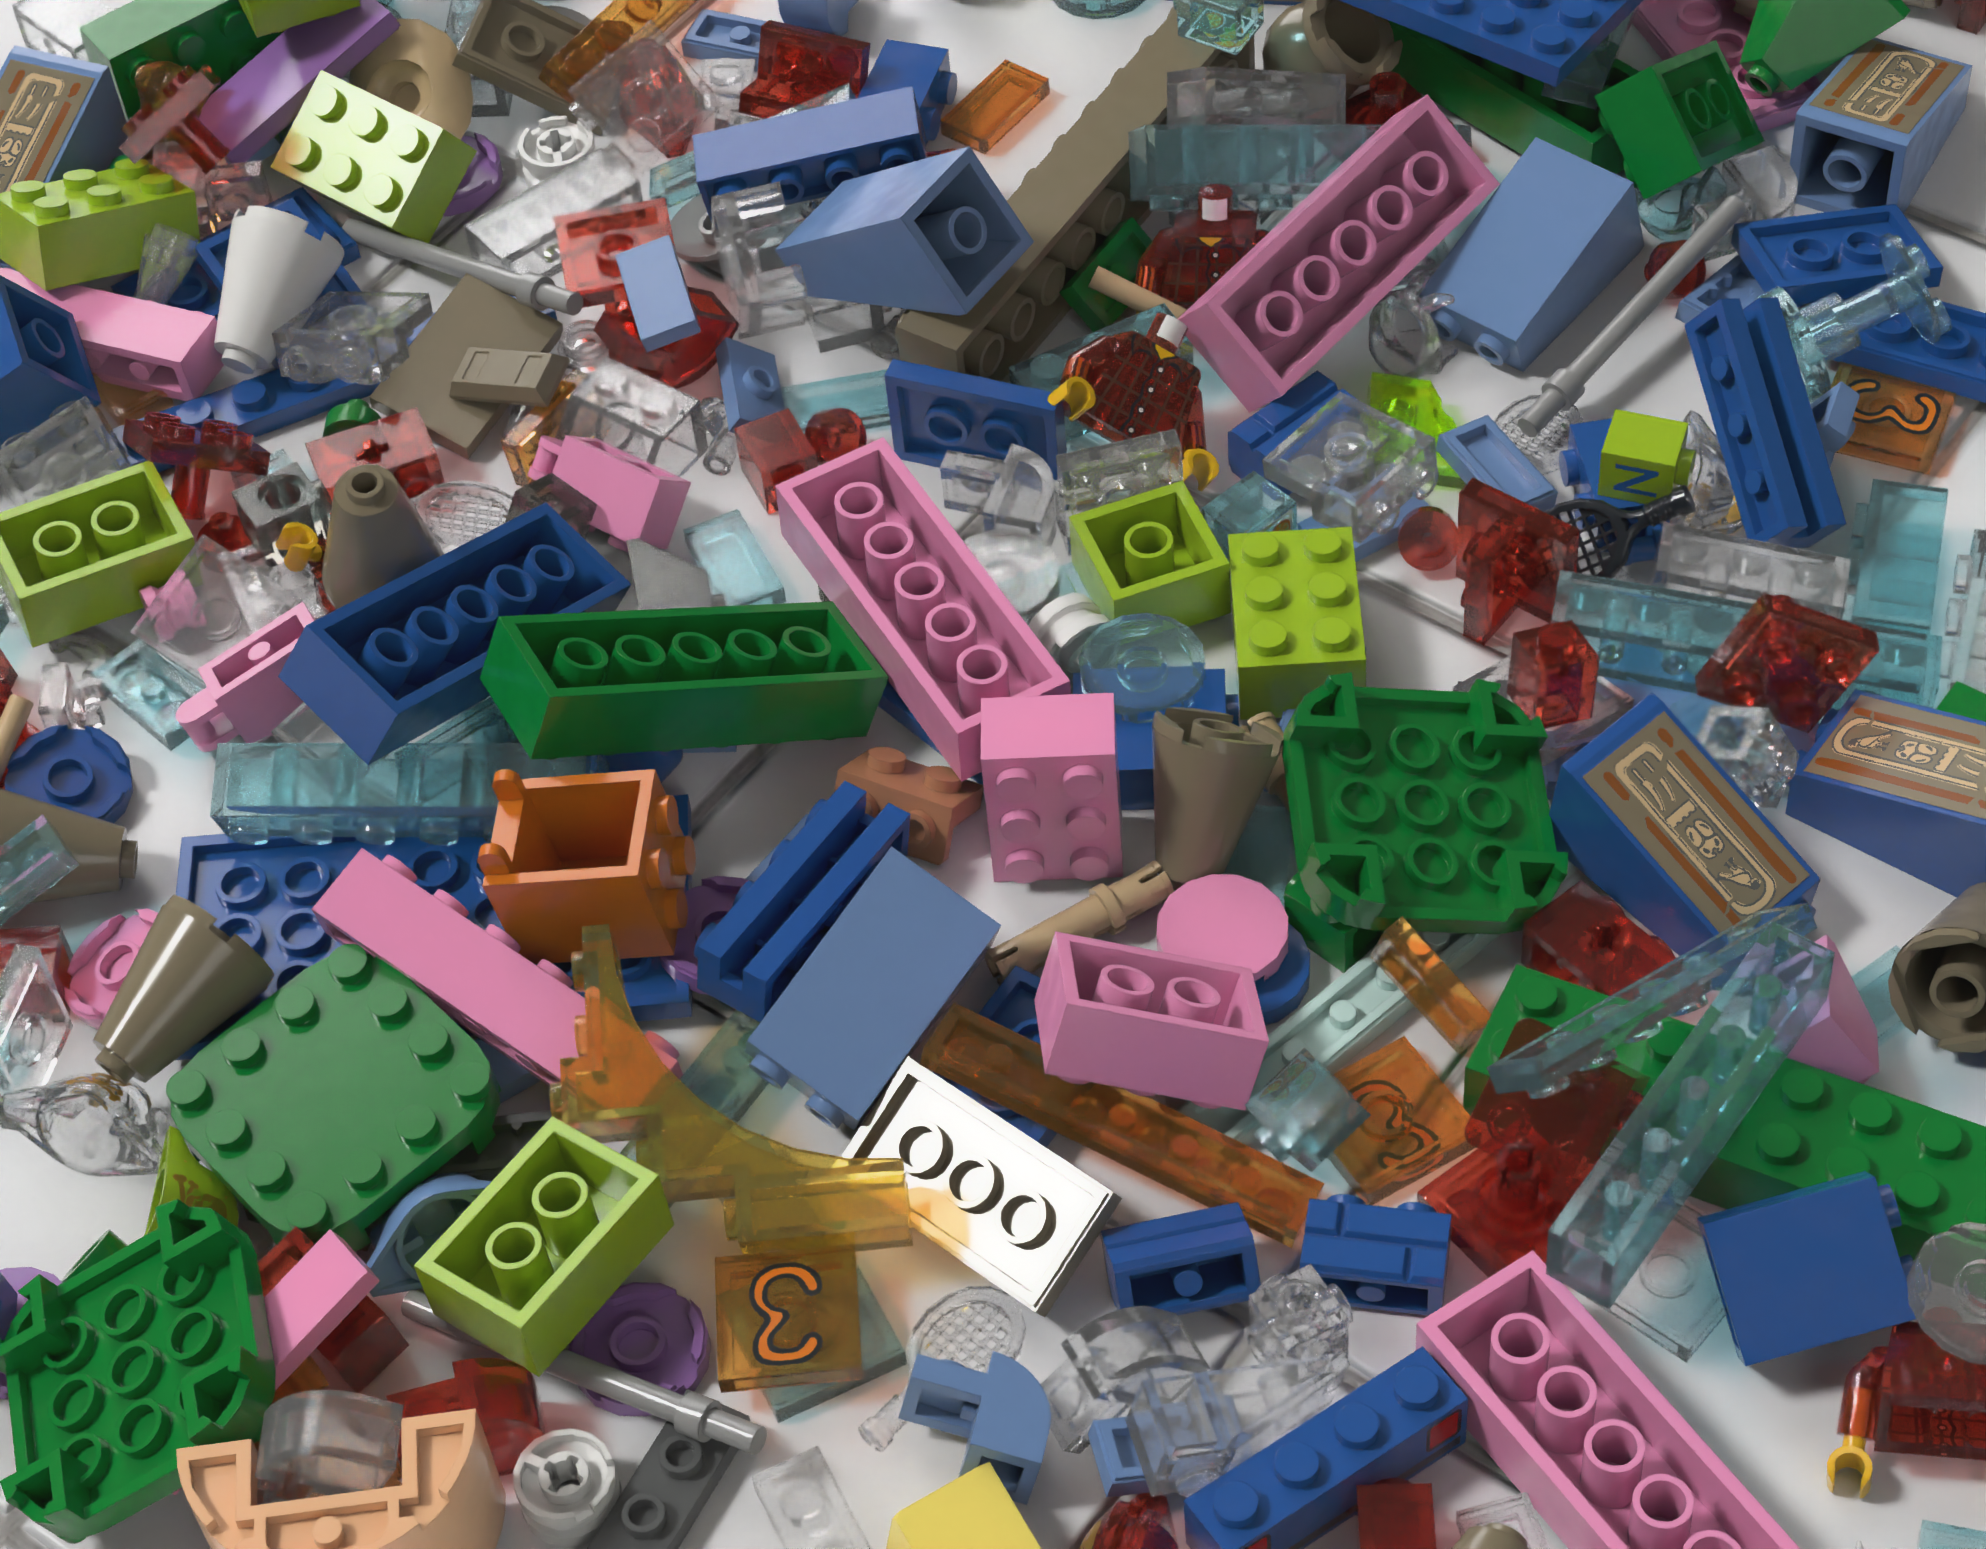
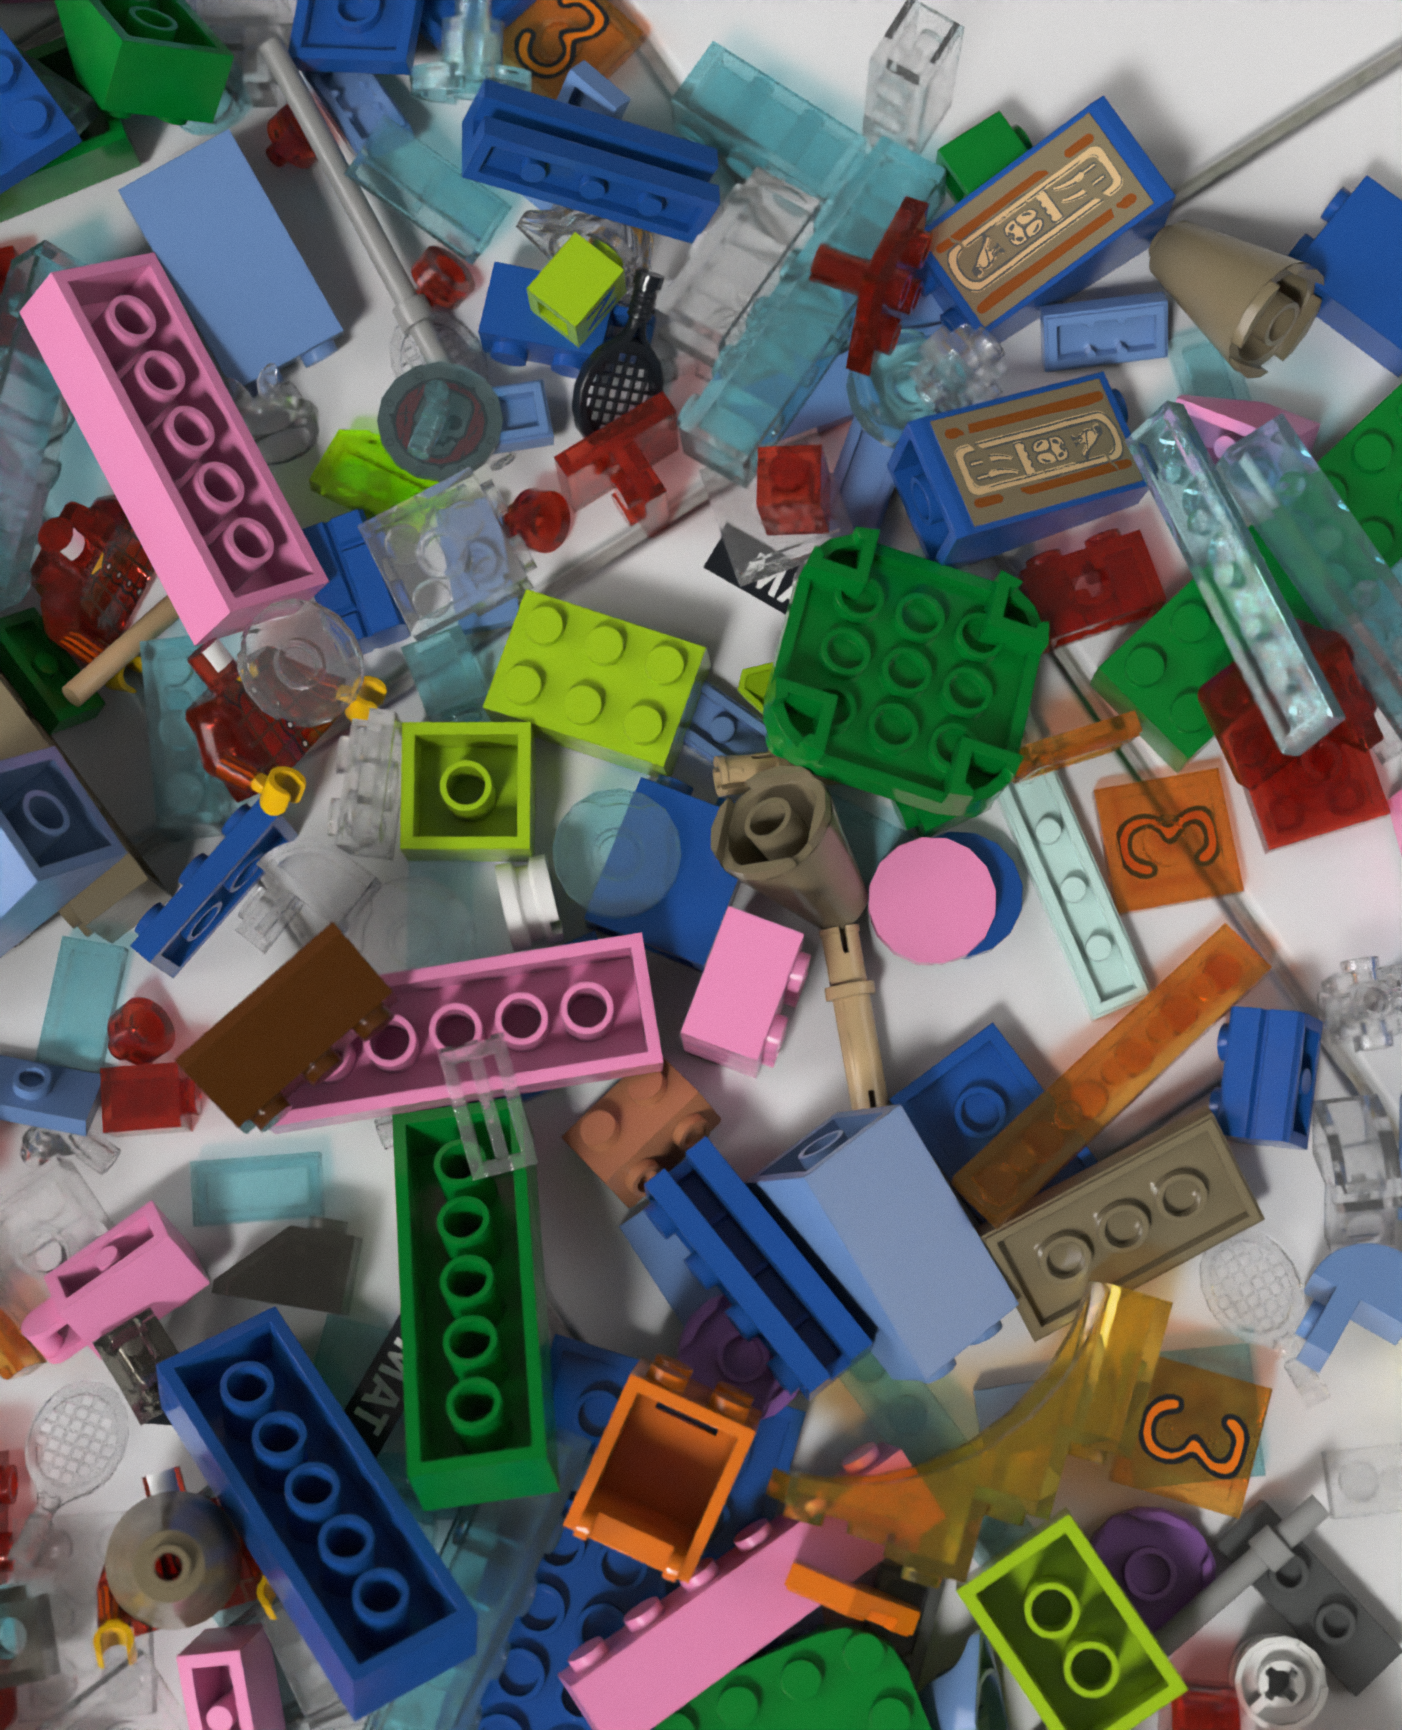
camera: 70 degrees left, 30 degrees up
(516, 1025) = (851, 1599): none -> orange tile
(860, 438) = (289, 1031): none -> reddish brown slope
(865, 627) = (474, 1052): none -> clear tile
(1150, 1022) = (1046, 1011): bright pink brick -> none
(1197, 387) = (300, 662): none -> clear tile
(1305, 1112) = (1164, 910): clear light blue brick -> none
(1379, 1253) = (1314, 910): blue brick -> none
(1475, 427) = (439, 420): none -> clear light blue shield
(1606, 393) = (442, 278): none -> clear red tile
(1669, 372) = (427, 190): none -> clear light blue piece
(1870, 886) = (1104, 331): none -> medium blue plate

